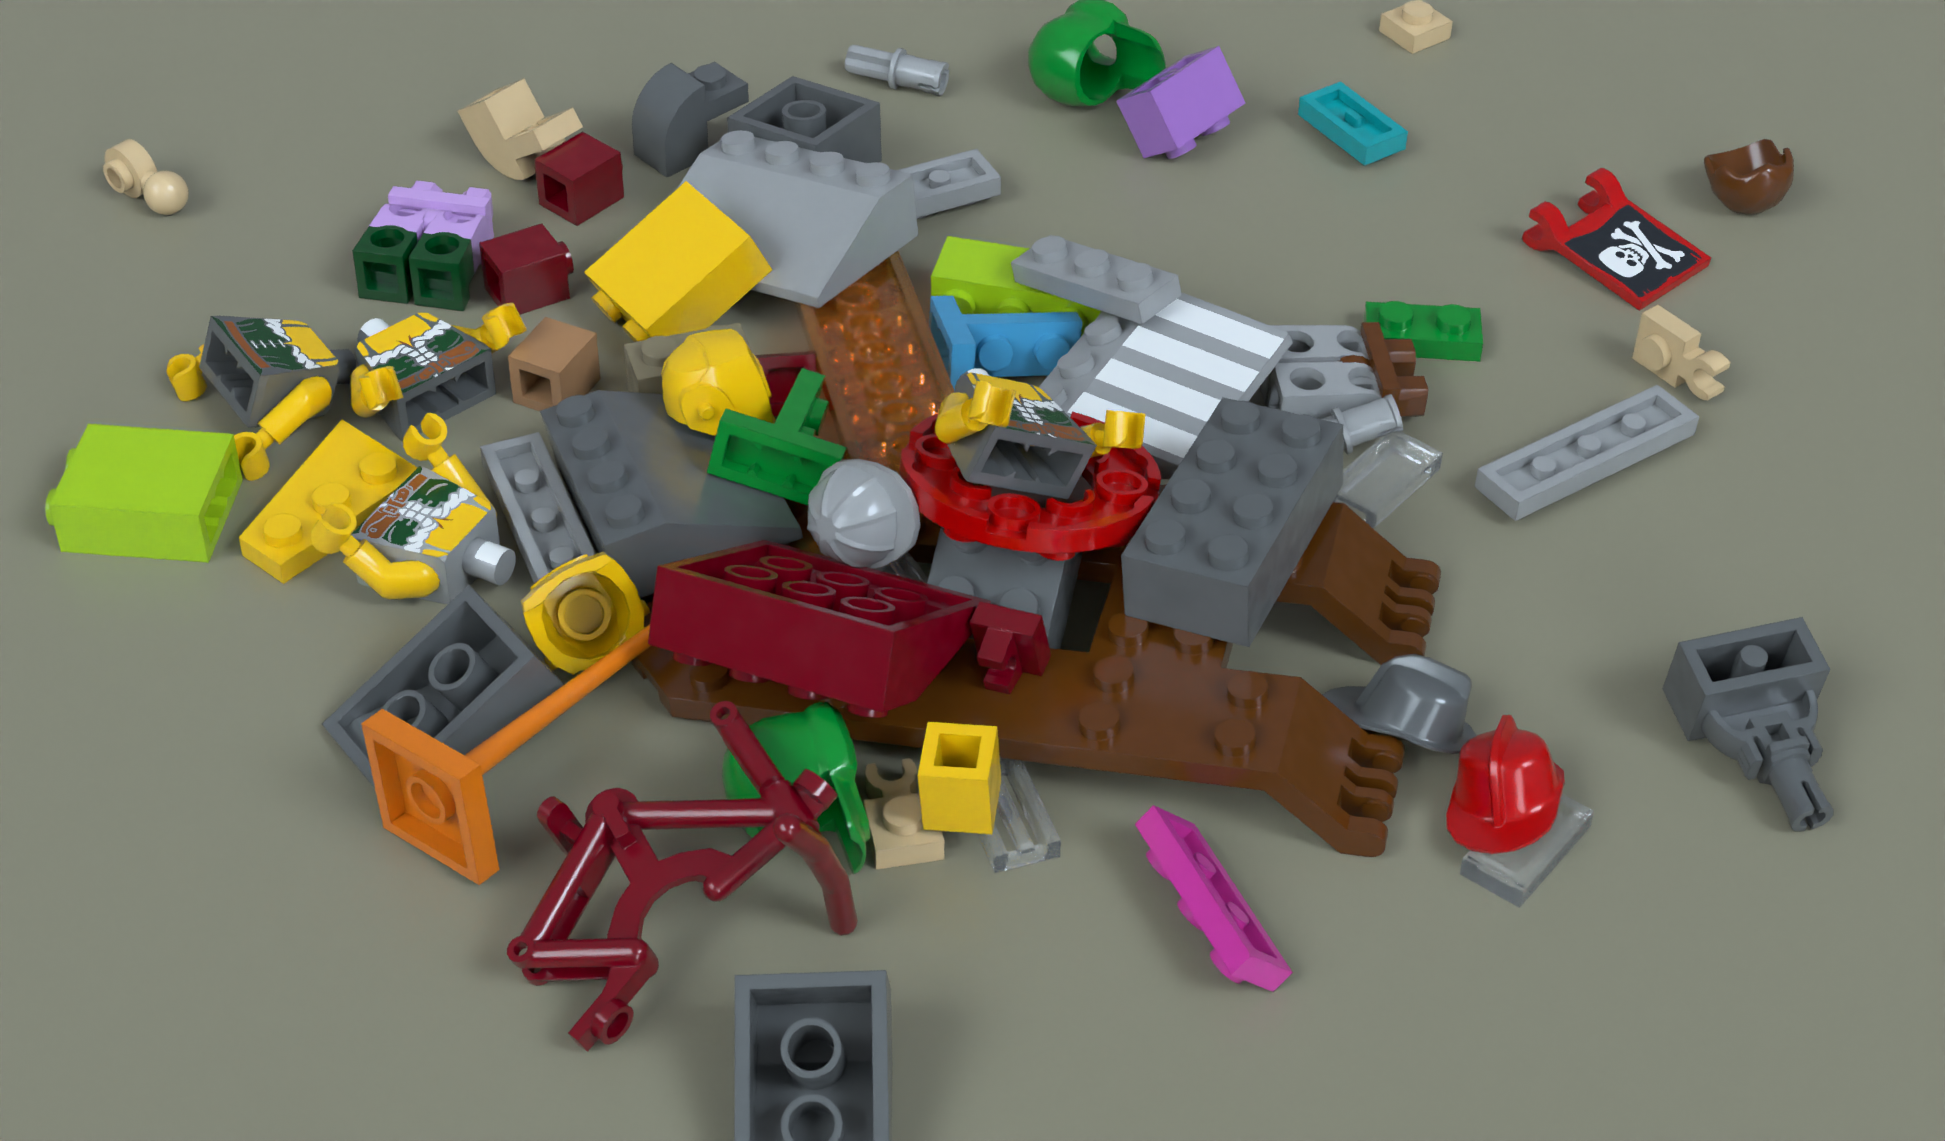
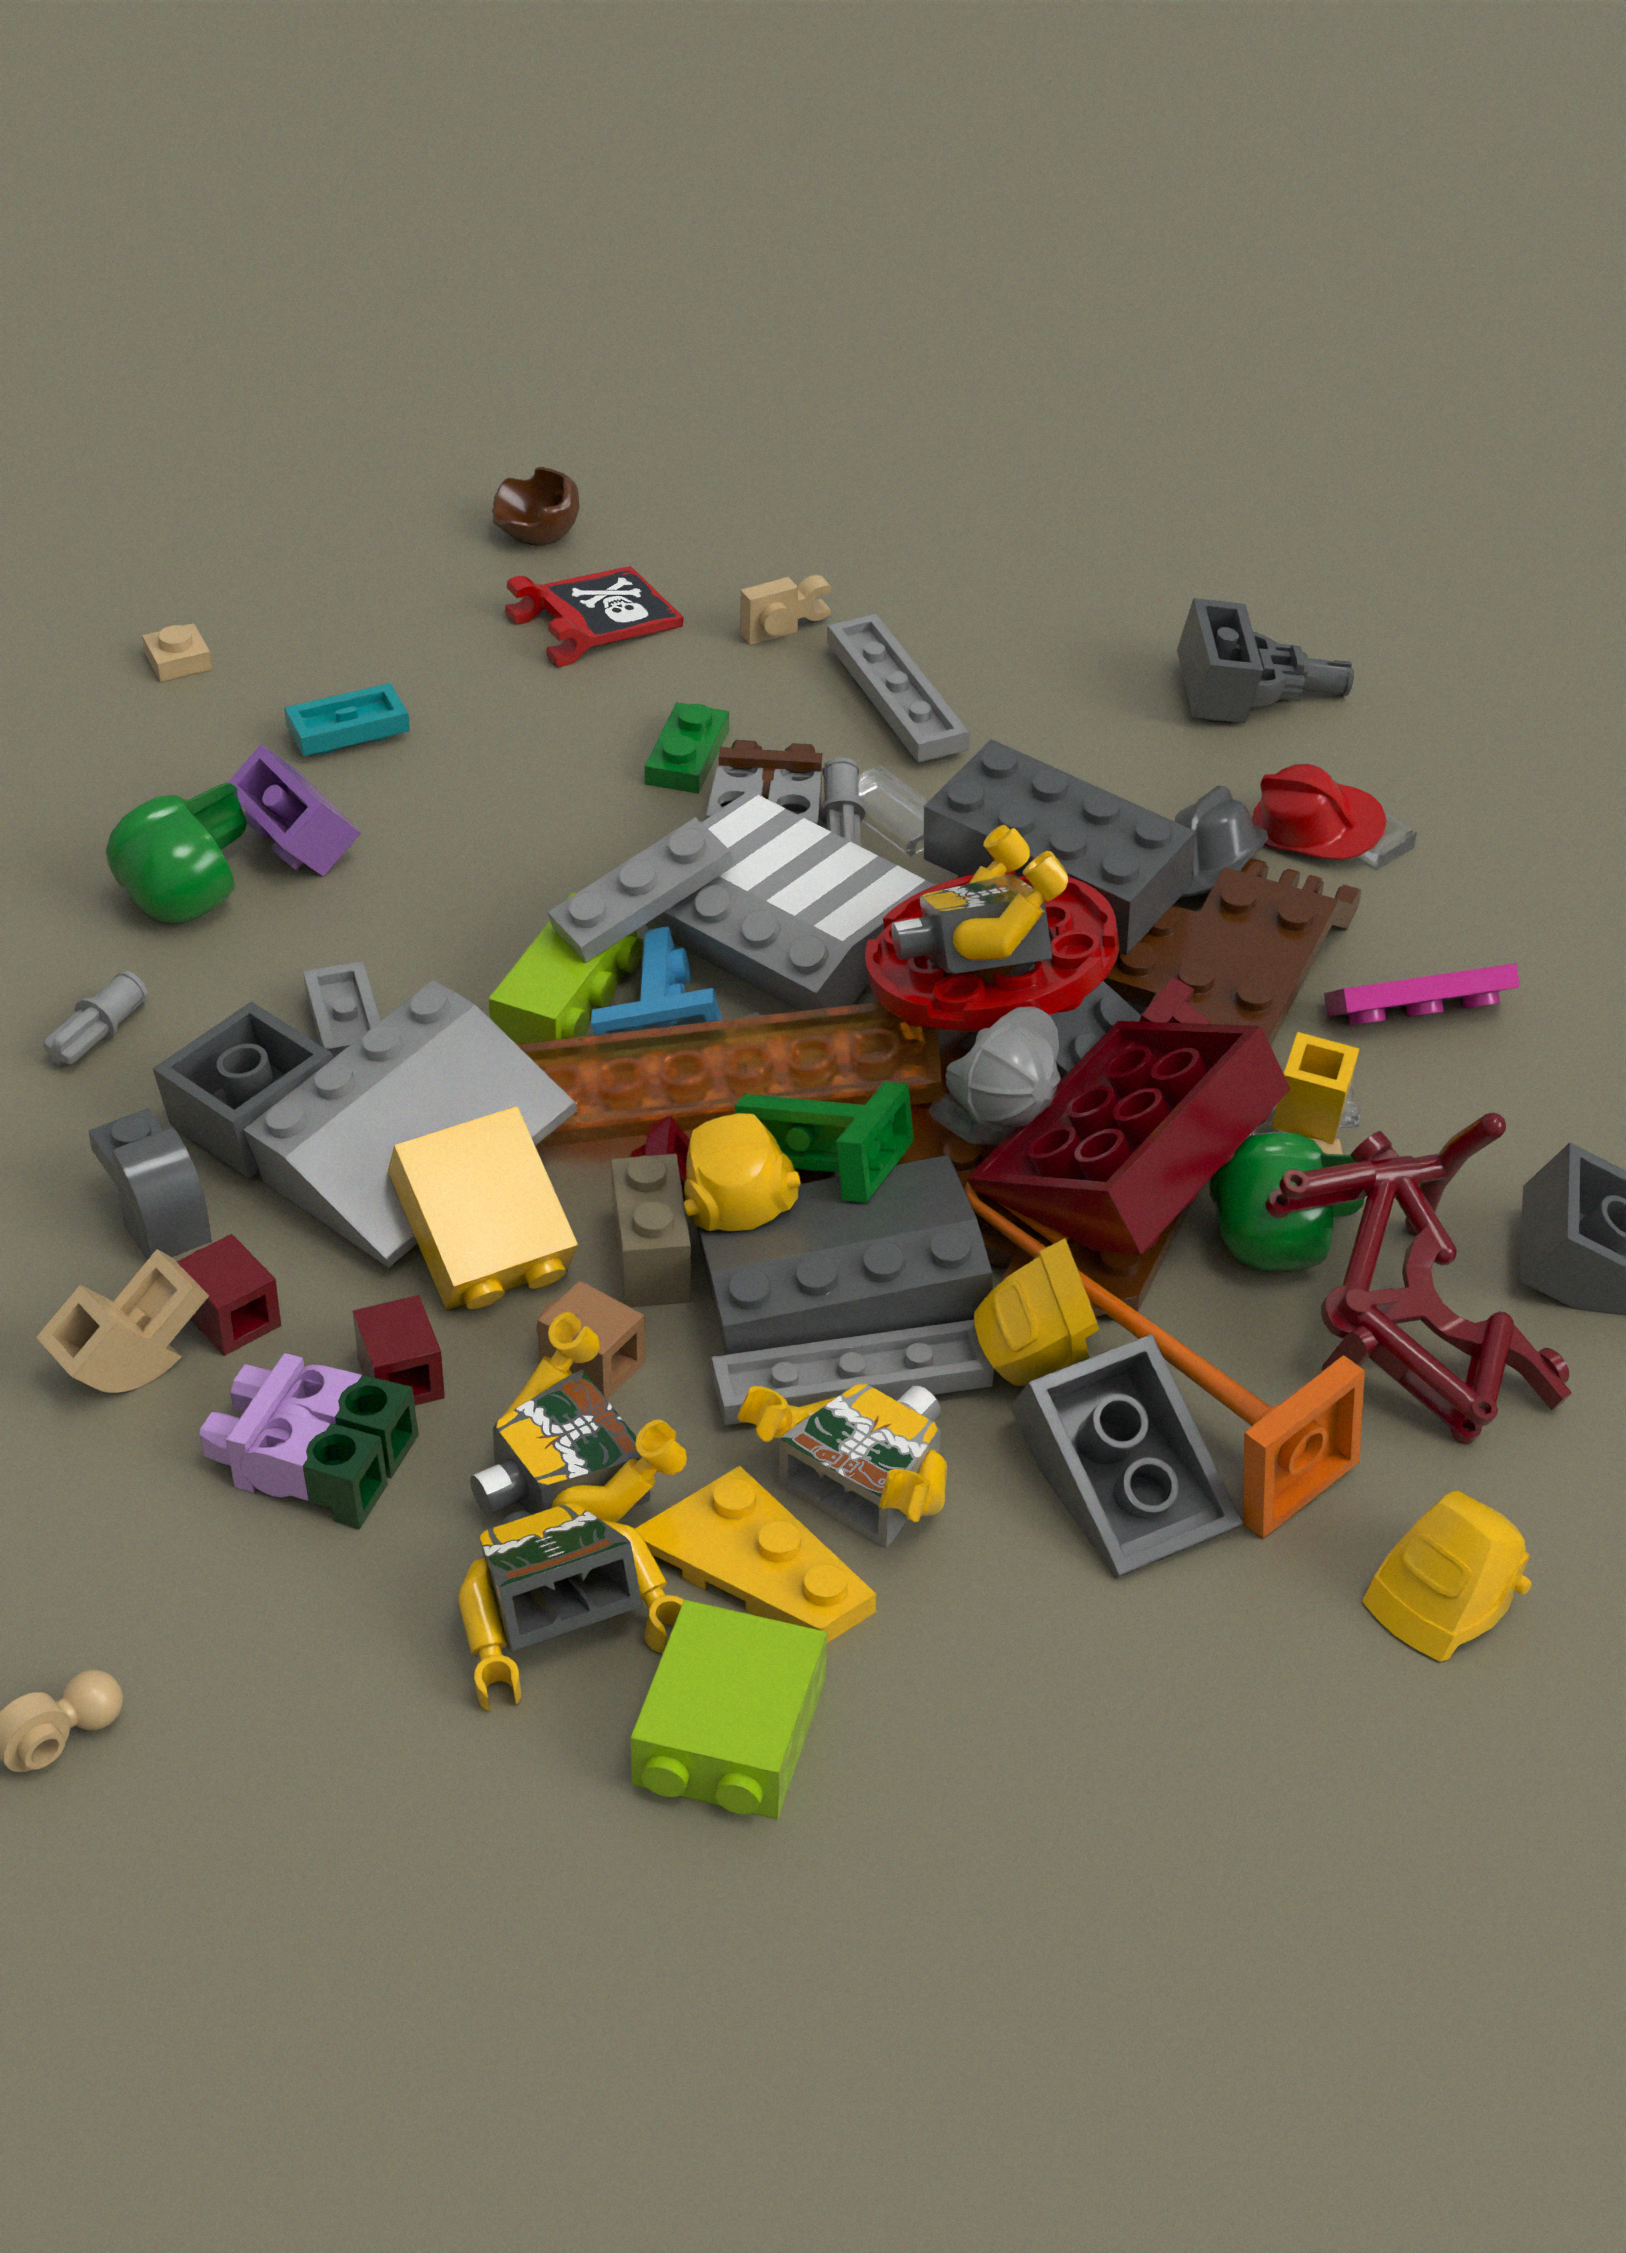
camera: 80 degrees left, 0 degrees up
(315, 947) = (1449, 1576): none -> yellow helmet

